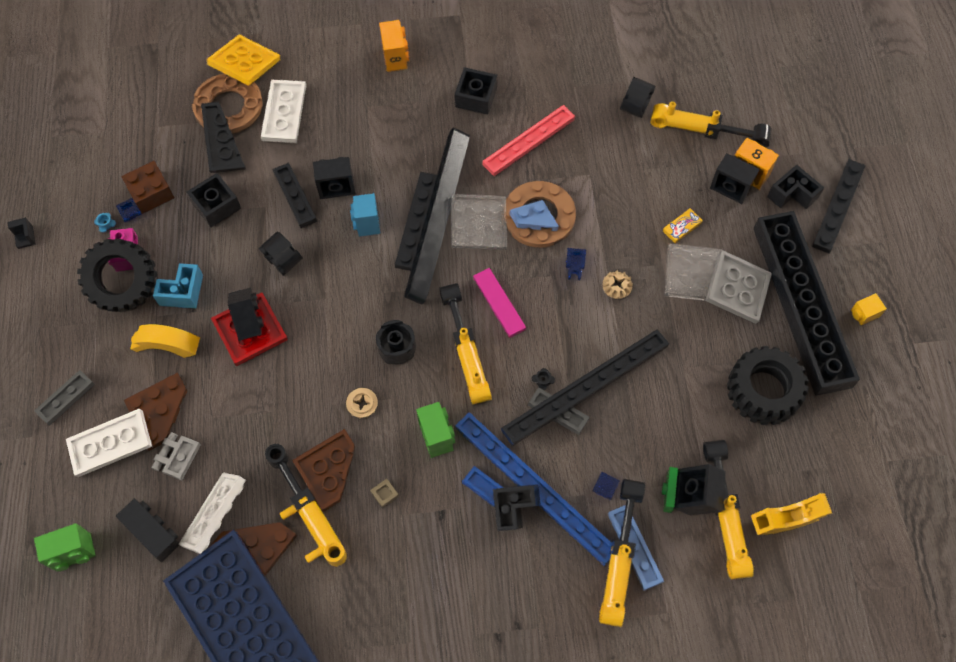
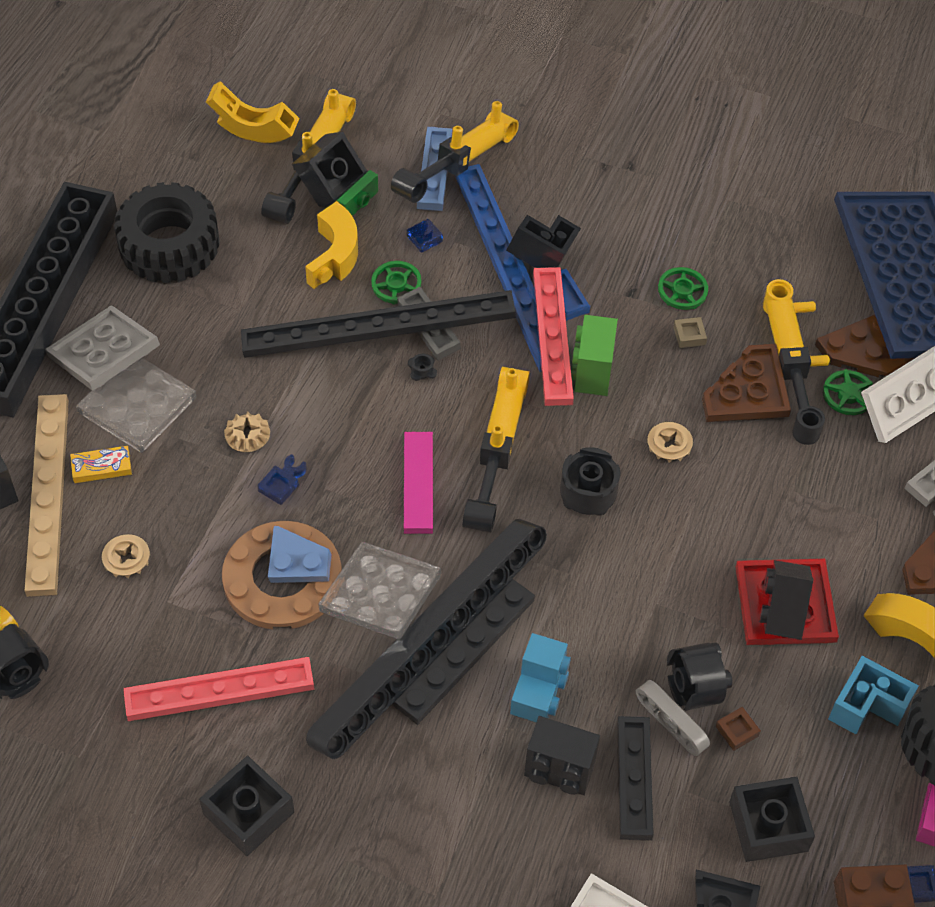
camera: 155 degrees left, 10 degrees down
(250, 243) = (738, 728): none -> reddish brown plate
(259, 503) = (848, 391): none -> green wheel
(289, 232) = (672, 718): none -> light grey beam
(406, 533) = (683, 288): none -> green wheel
(471, 432) = (553, 337): none -> coral plate
(600, 436) = (395, 281): none -> green wheel
(632, 177) = (122, 546): none -> tan gear
(651, 445) = (341, 230): none -> yellow arch
(699, 198) = (47, 496): none -> tan plate

